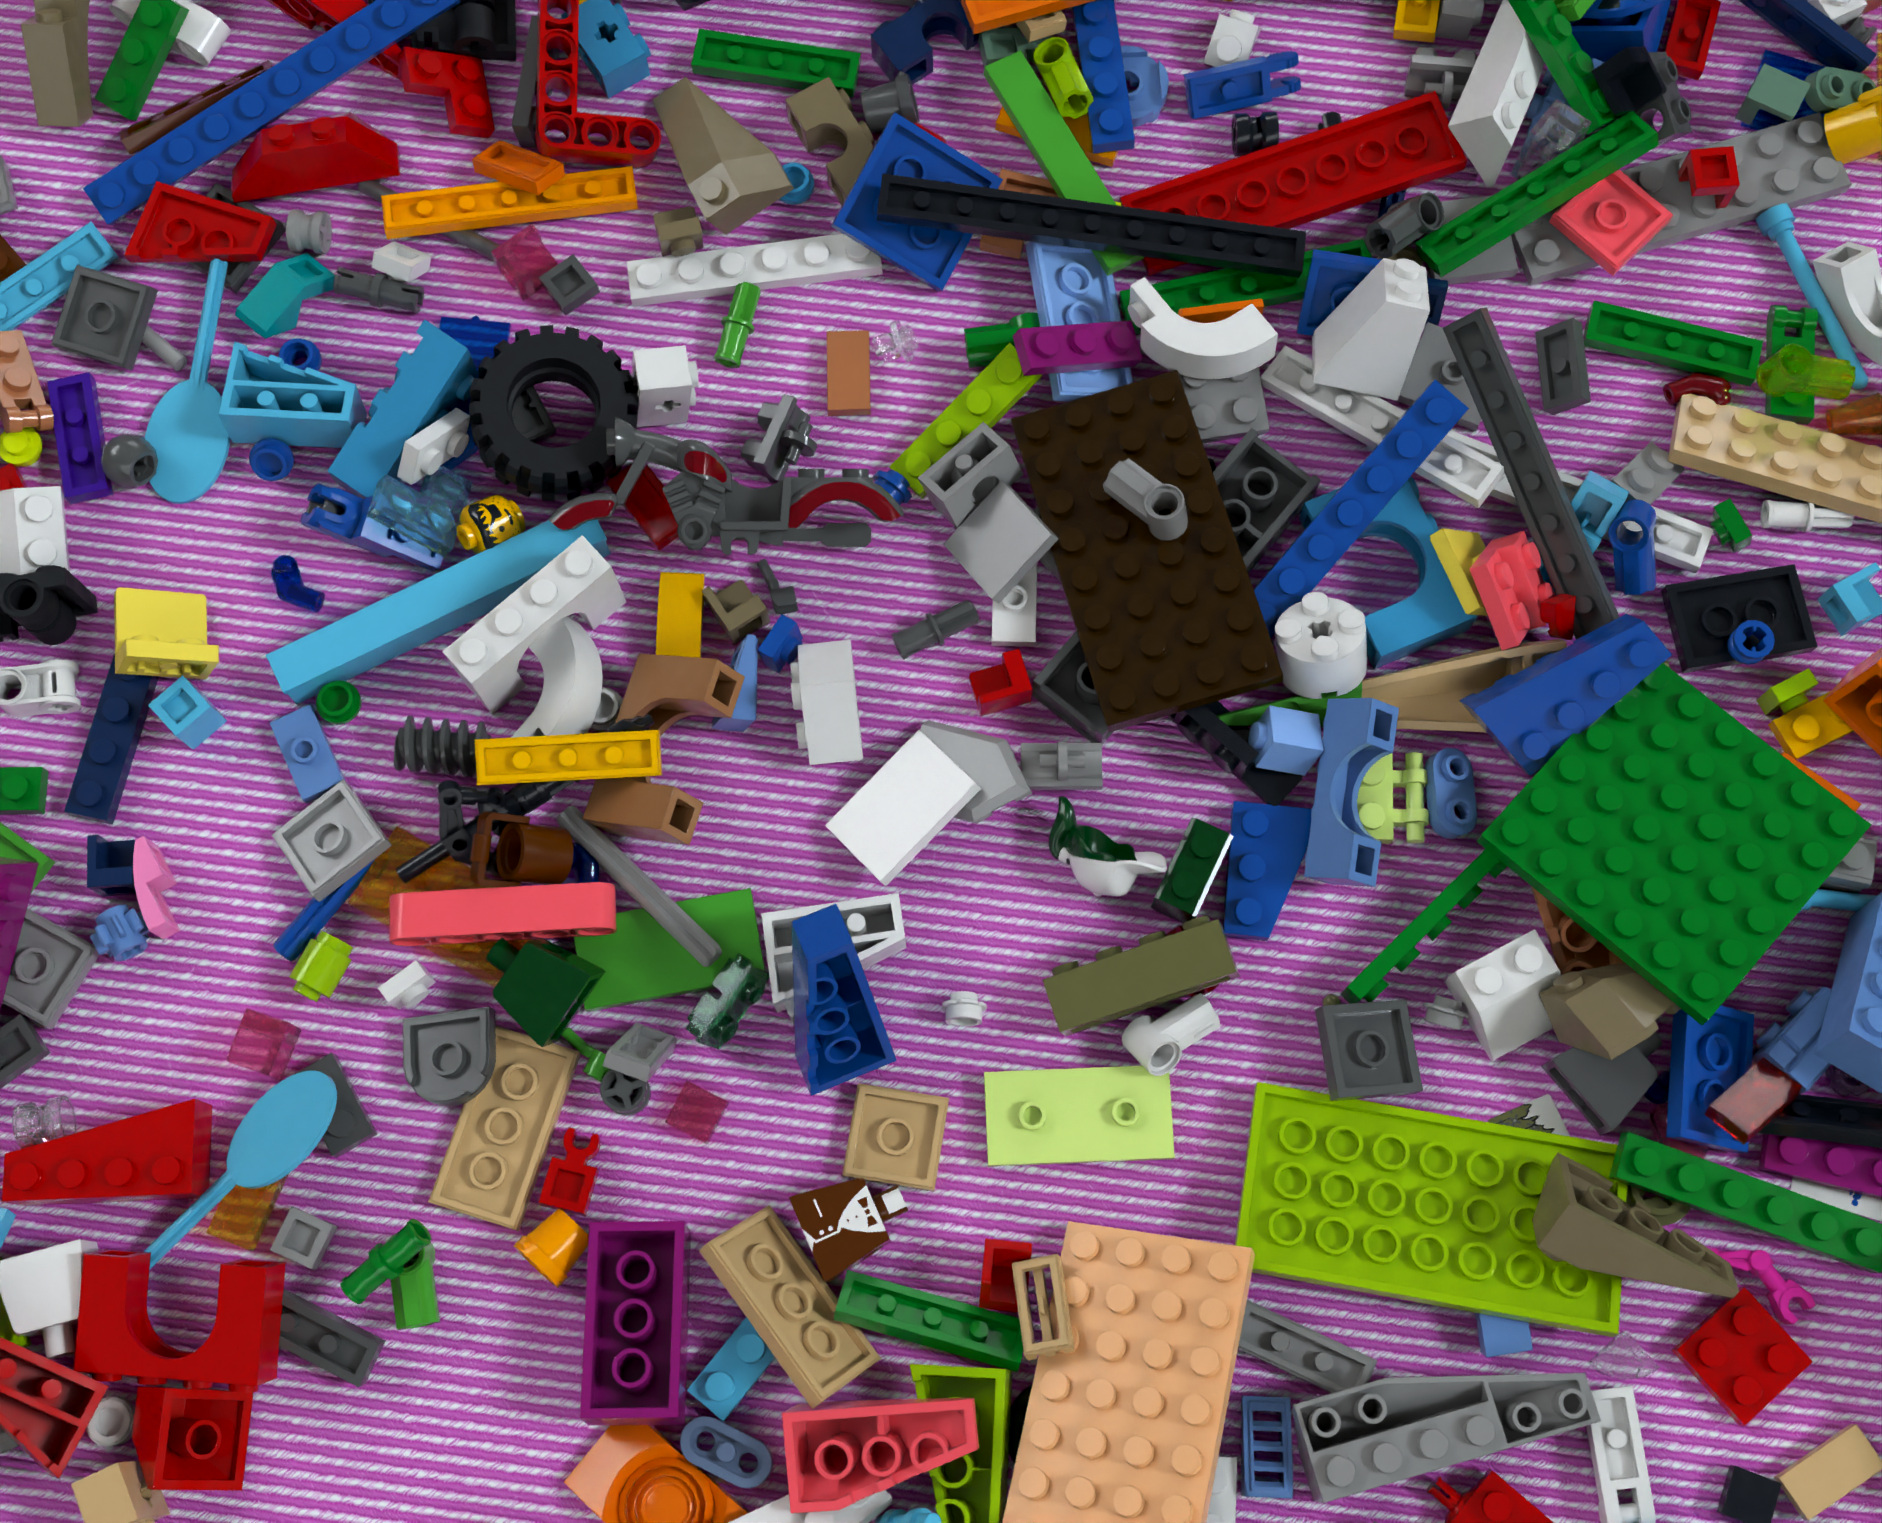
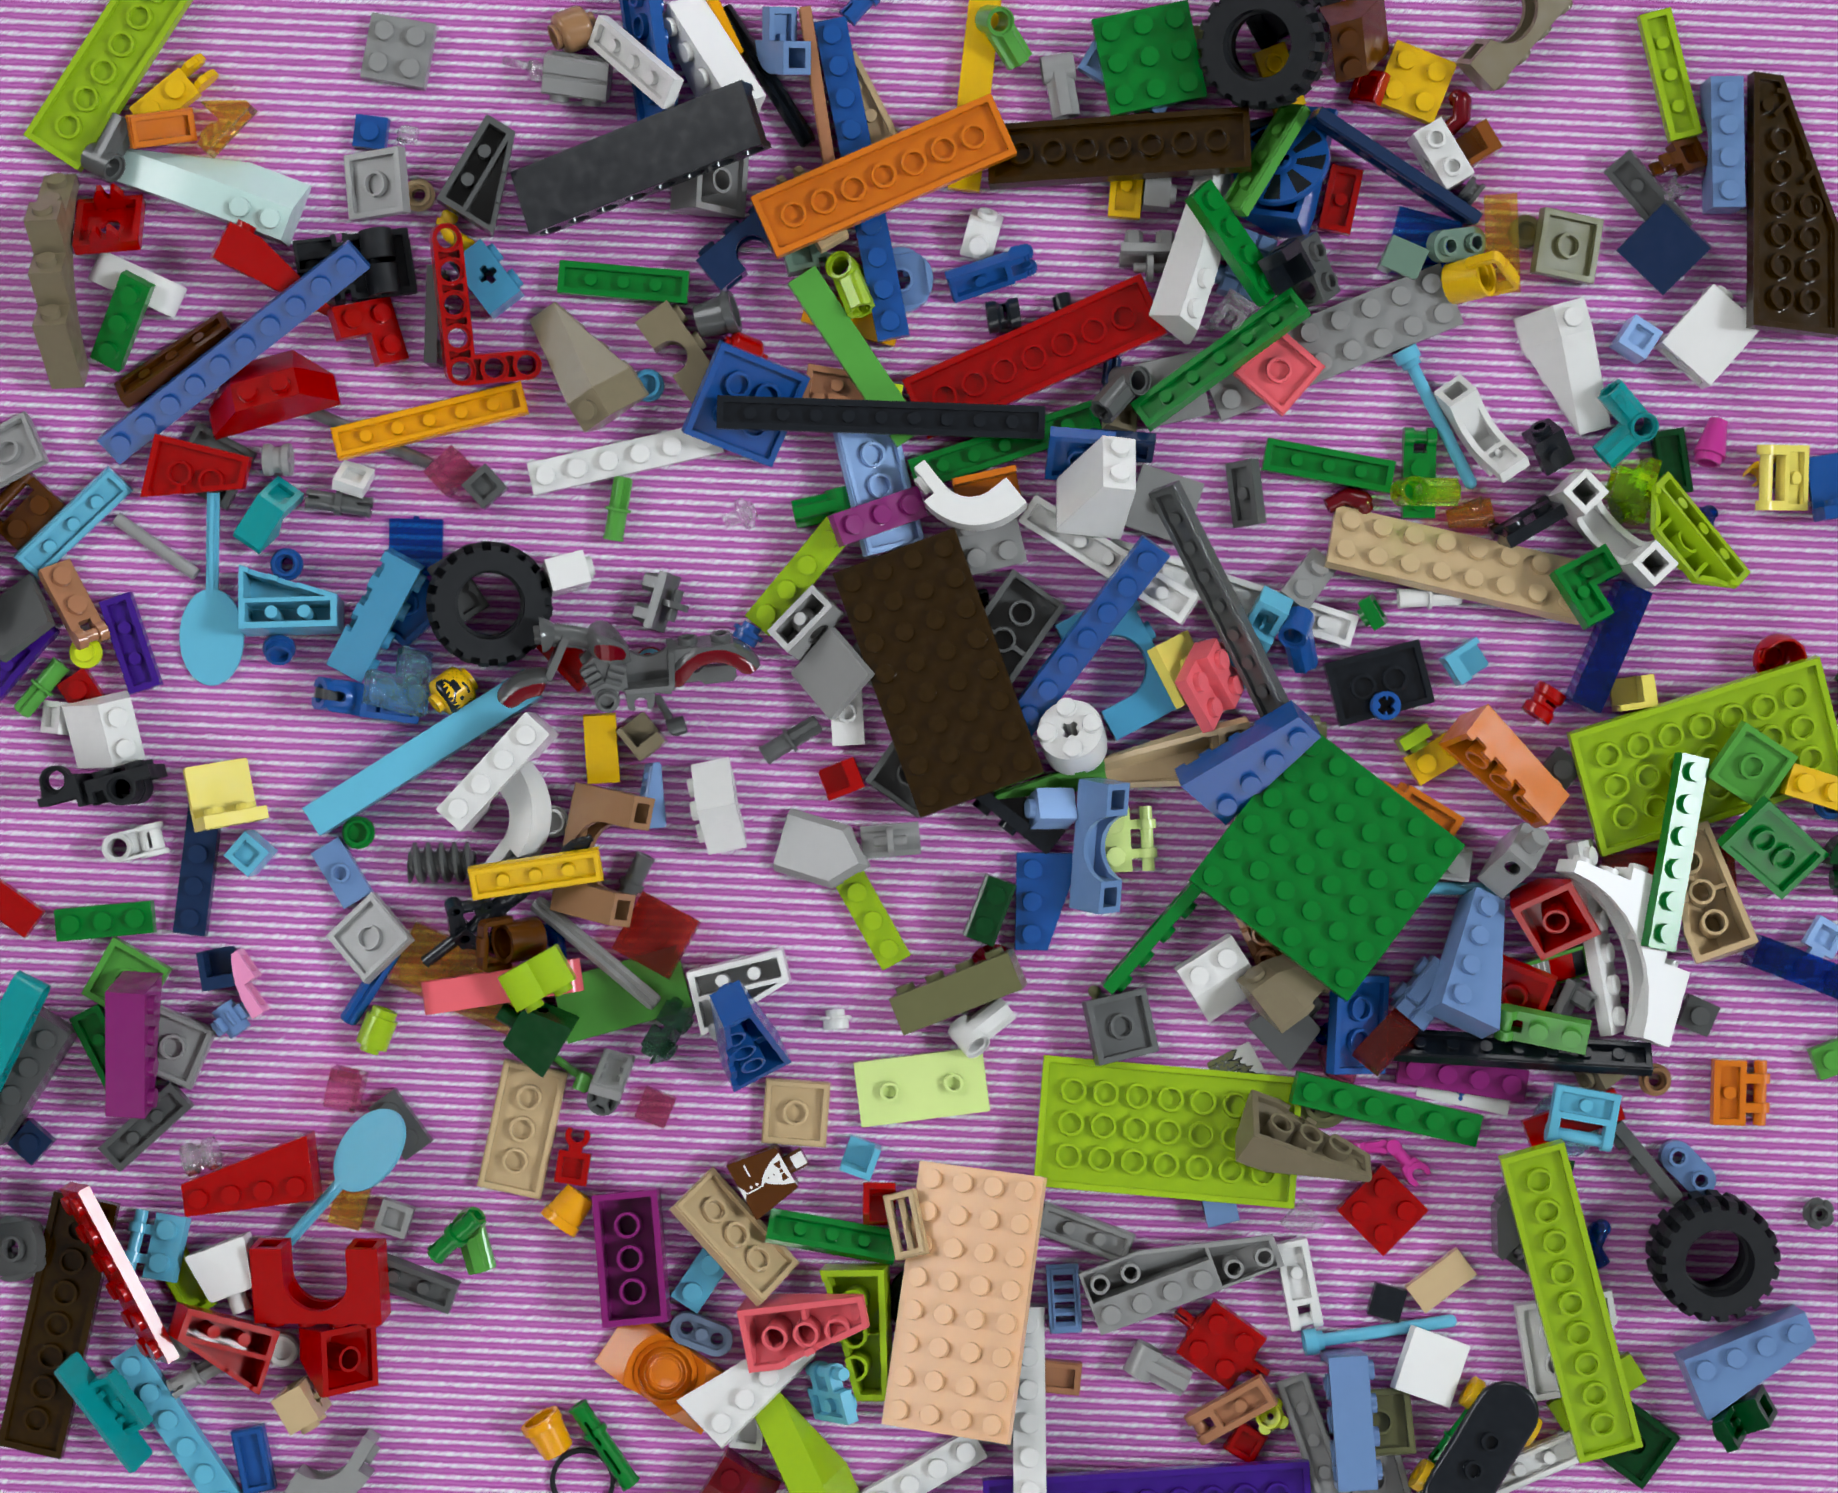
camera: 10 degrees left, 15 degrees up
(104, 317) = (132, 544): dark grey tile -> none
(129, 460) = (172, 661): dark grey piece -> none
(290, 585) = (309, 746): clear blue arm -> none
(408, 986) = (441, 1039): white plate -> none
(434, 446) = (399, 647): white plate -> none
(450, 1054) = (477, 1084): dark grey tile -> none
(518, 167) = (433, 393): orange tile -> none
(551, 896) = (537, 978): none -> lime brick
(678, 231) = (563, 436): dark tan bracket -> none
(710, 784) = (636, 874): none -> dark grey pin
(725, 870) = (656, 935): none -> clear red tile
(781, 644) = (679, 763): blue plate -> none
(848, 373) = (706, 540): nougat tile -> none
(902, 807) = (778, 880): white tile -> none
(983, 1207) = (860, 1157): none -> medium azure panel
(1026, 875) = (873, 920): none -> lime plate
(1095, 858) = (922, 905): hair -> none
(1147, 497) = (936, 642): light grey piece -> none
(1445, 1012) = (1173, 994): light grey plate -> none
(1450, 791) = (1169, 833): medium blue plate -> none
(1559, 615) = (1244, 700): red tile -> none
(1711, 173) = (1351, 337): red panel -> none

